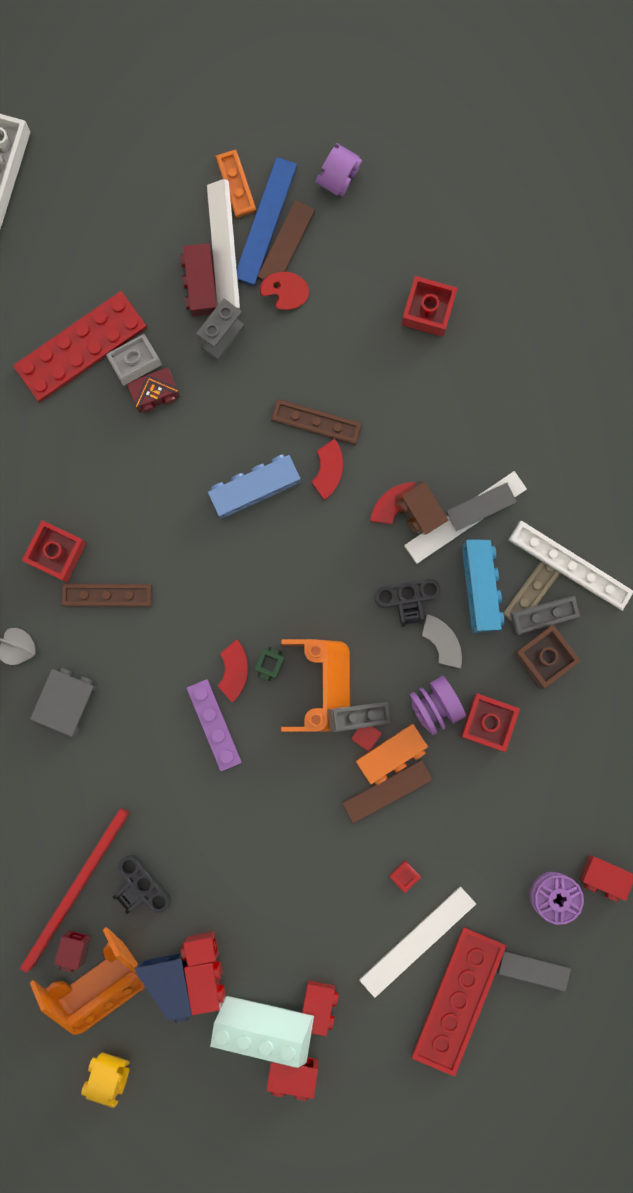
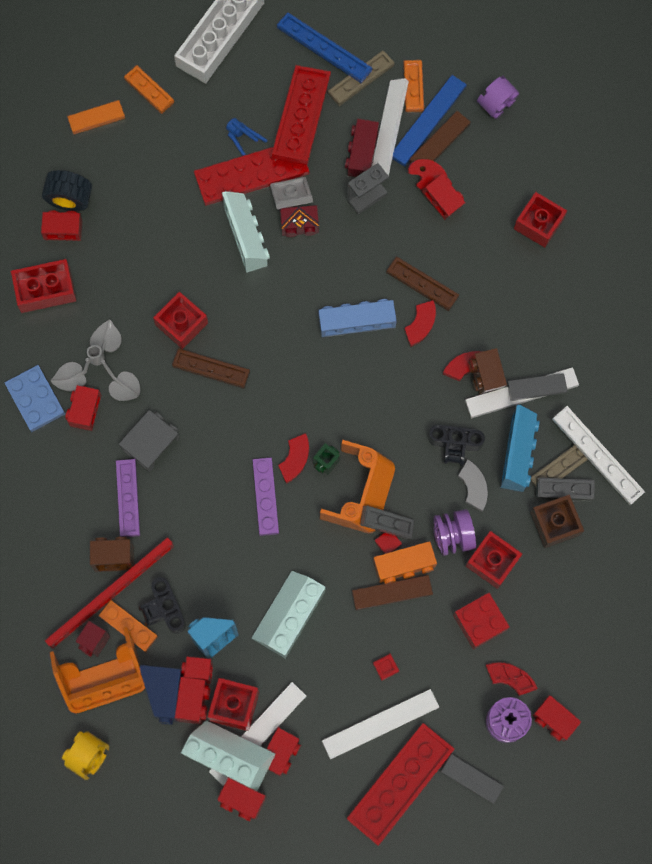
camera: 15 degrees right, 10 degrees down
(48, 298) = (237, 129): none -> blue plant
(60, 775) = (128, 498): none -> medium lavender plate
(61, 850) = (111, 554): none -> reddish brown brick
(94, 421) = (244, 231): none -> light aqua slope
(104, 916) = (120, 618): none -> orange plate
(116, 260) = (301, 115): none -> red plate
(117, 167) = (324, 47): none -> blue tile
(172, 192) = (349, 86): none -> dark tan tile
(199, 913) = (212, 635): none -> dark azure slope
(251, 974) = (233, 704): none -> red brick
(280, 851) = (289, 613): none -> light aqua slope
(298, 969) = (270, 720): none -> white tile
(310, 311) = (443, 196): none -> red brick
(495, 795) = (481, 621): none -> red brick
(546, 844) = (511, 676): none -> red tile

